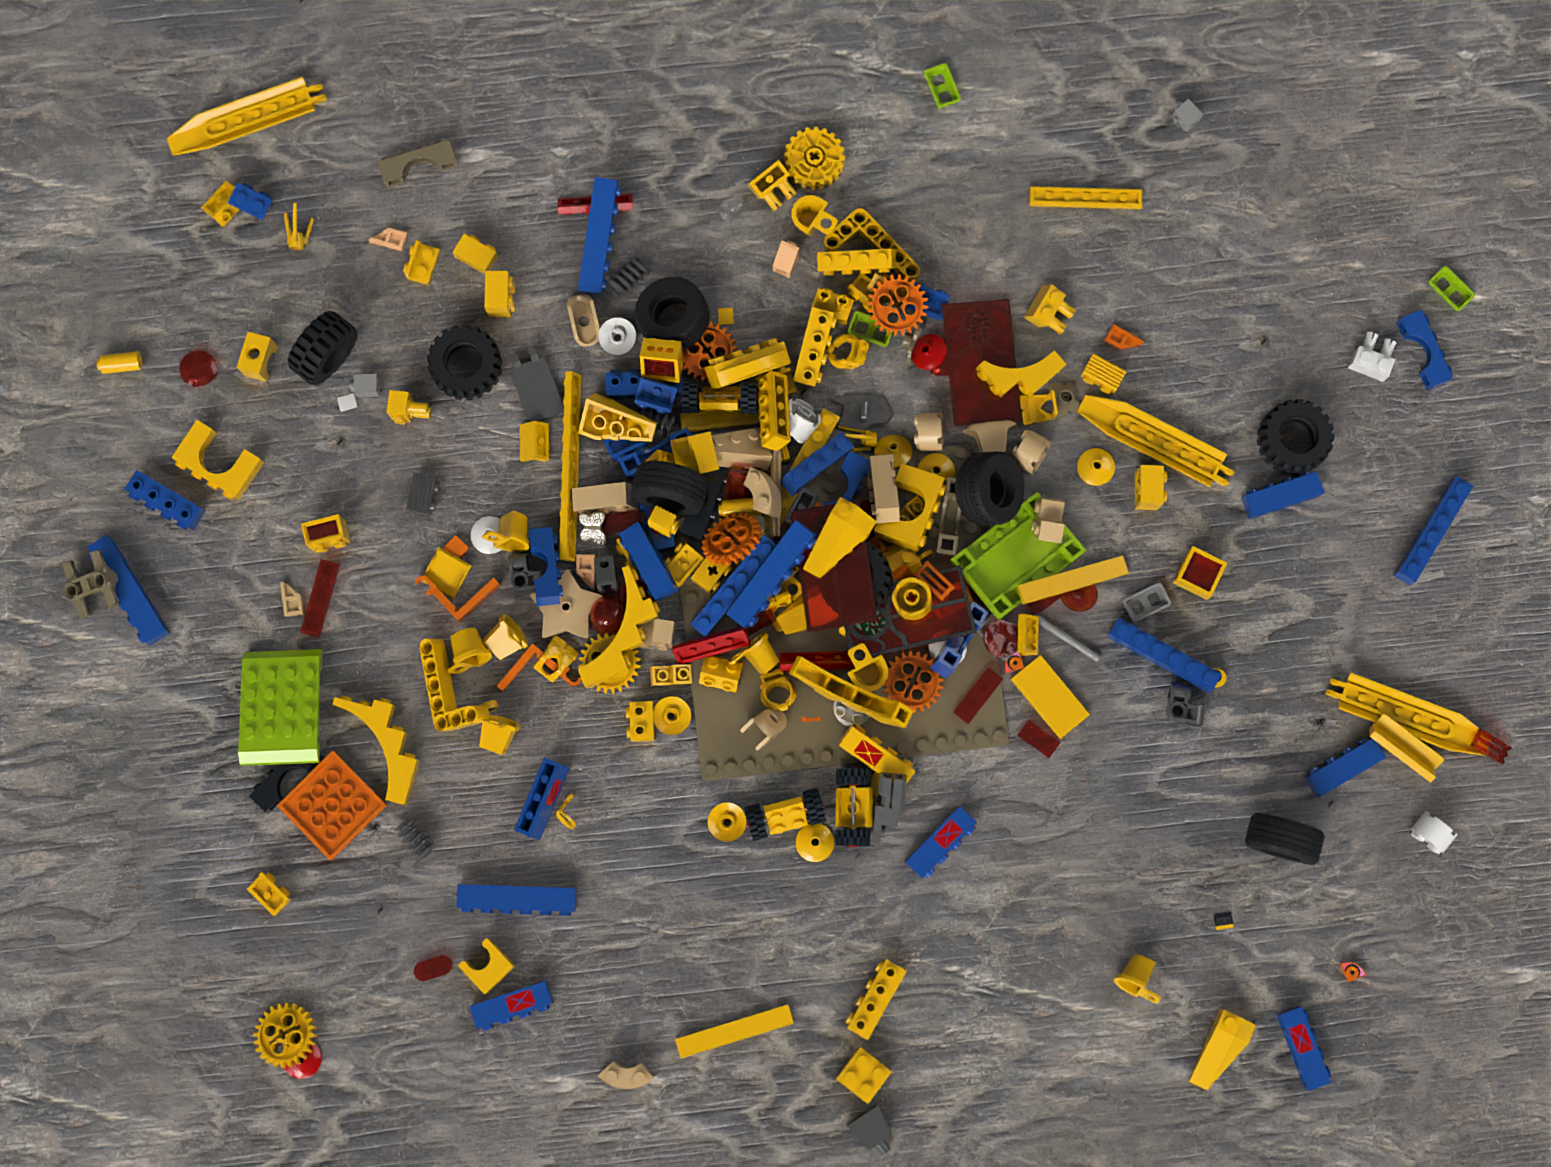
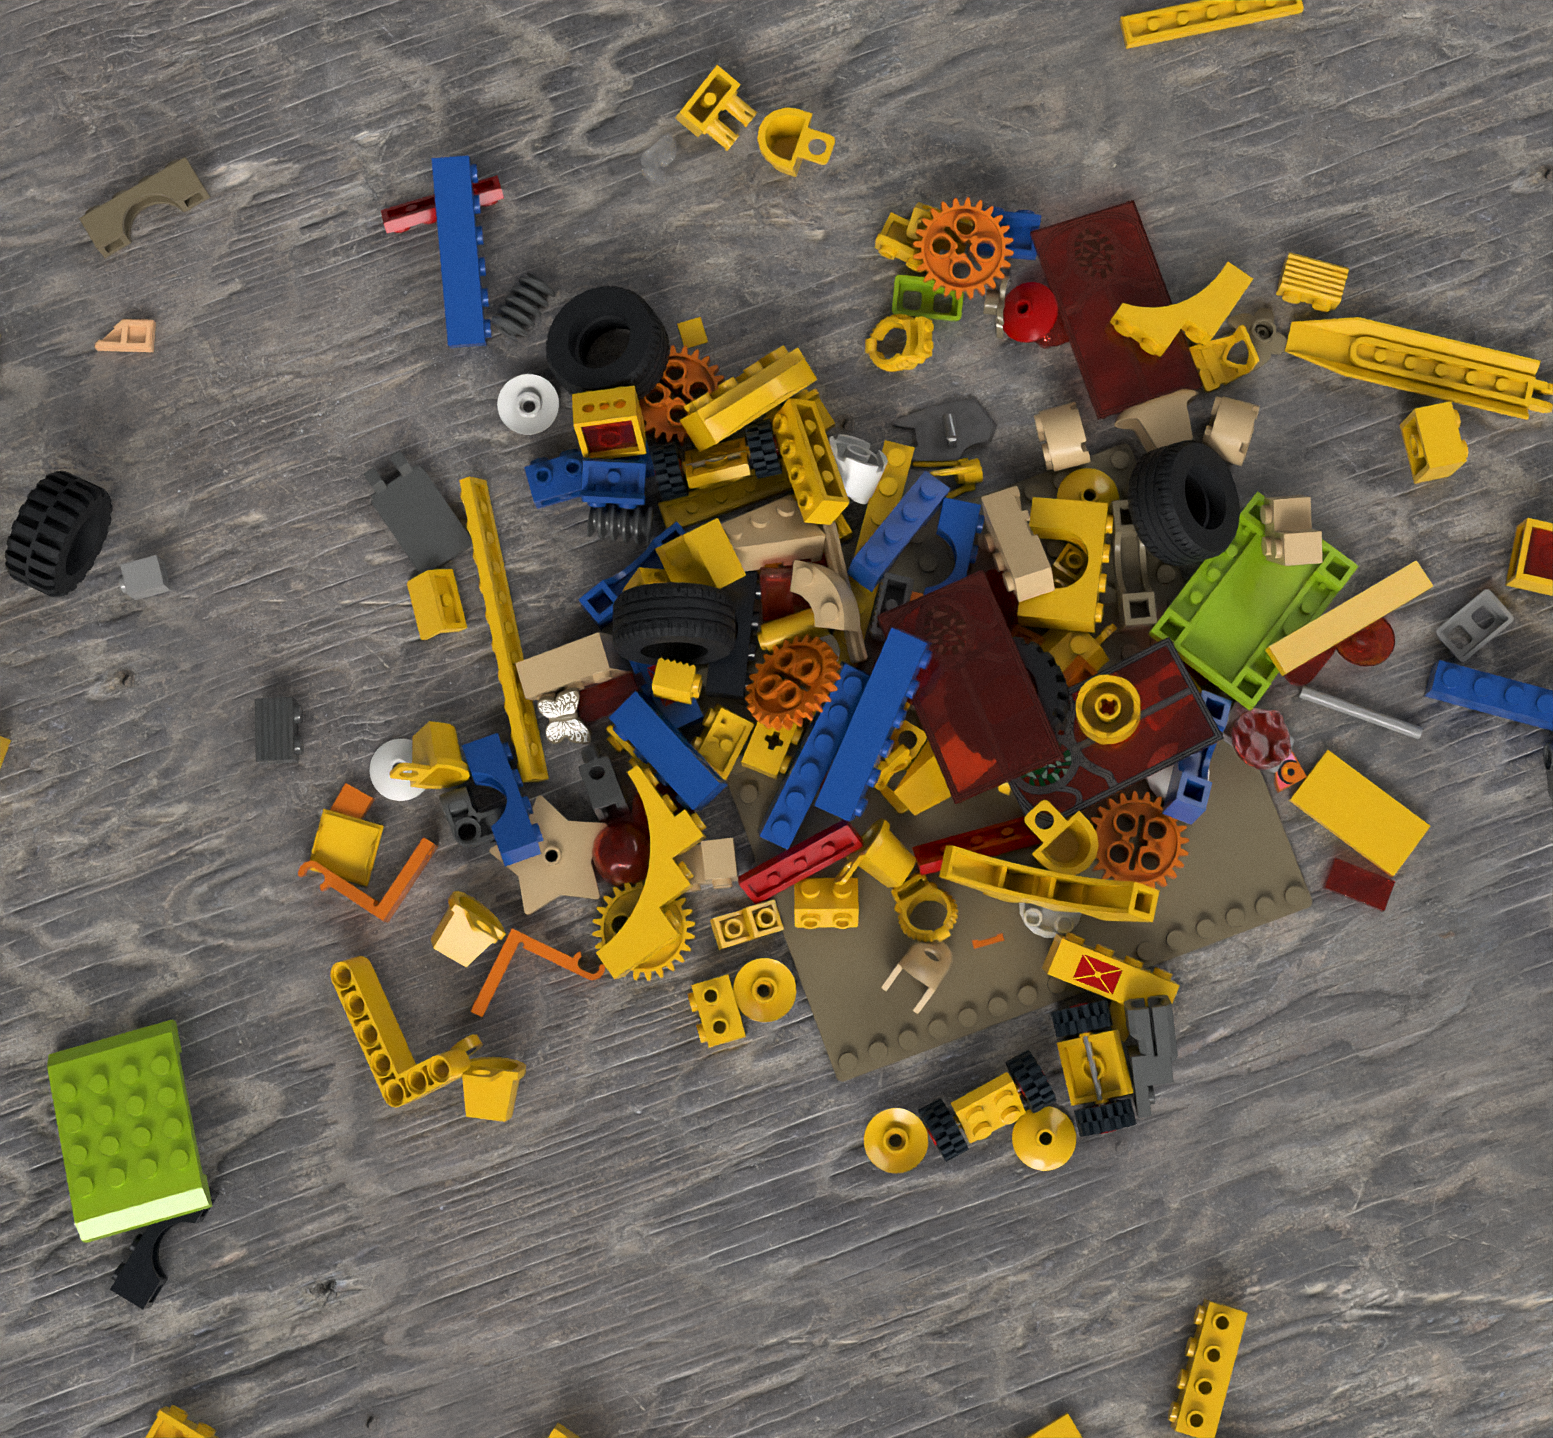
camera: 10 degrees left, 0 degrees up
(291, 601) = (106, 952): tan tile -> none
(320, 598) = (151, 938): clear red plate -> none
(326, 533) = (135, 831): yellow piece -> none
(332, 805) = (250, 1270): orange plate -> none
(347, 402) = (121, 612): white sticker -> none
(400, 768) = (348, 1181): yellow arch -> none
(403, 408) = (213, 600): yellow brick -> none
(414, 839) = (398, 1293): dark grey piece -> none
(421, 263) = (187, 363): yellow bracket -> none
(457, 339) = (267, 475): black tyre -> none
(468, 650) = (411, 965): yellow container -> none
(475, 254) = (271, 327): yellow brick -> none
(498, 294) = (323, 382): yellow brick -> none
(516, 898) = (585, 1349): blue brick -> none
(541, 799) = (588, 1177): blue brick -> none
(562, 652) = (559, 929): yellow piece -> none
(571, 825) = (644, 1205): yellow piece -> none
(579, 306) = (462, 370): tan piece -> none
(586, 568) = (569, 787): light nougat tile -> none
(611, 420) = (552, 539): yellow wedge -> none
(622, 448) = (583, 571): blue bracket -> none
(765, 619) = (877, 799): clear red tile -> none
(786, 258) = (767, 218): light nougat slope -> none
(814, 172) = (756, 36): yellow piece -> none
(814, 346) = (847, 345): yellow brick -> none
(832, 302) = (858, 276): yellow brick -> none
(841, 533) = (969, 631): yellow wedge -> none
(856, 260) = (879, 195): yellow brick -> none
(874, 241) = (898, 159): yellow beam -> none
(901, 454) = (1027, 479): yellow dish -> none
(940, 842) = (1247, 1089): blue brick -> none
(945, 592) = (1158, 685): orange tile -> none
(978, 695) = (1245, 838): clear red tile -> none
(1028, 634) = (1302, 722): yellow bracket -> none
(1044, 307) = (1193, 199): yellow brick -> none
(1089, 473) = (1329, 443): yellow dish -> none
(1122, 339) = (1325, 220): orange tile -> none

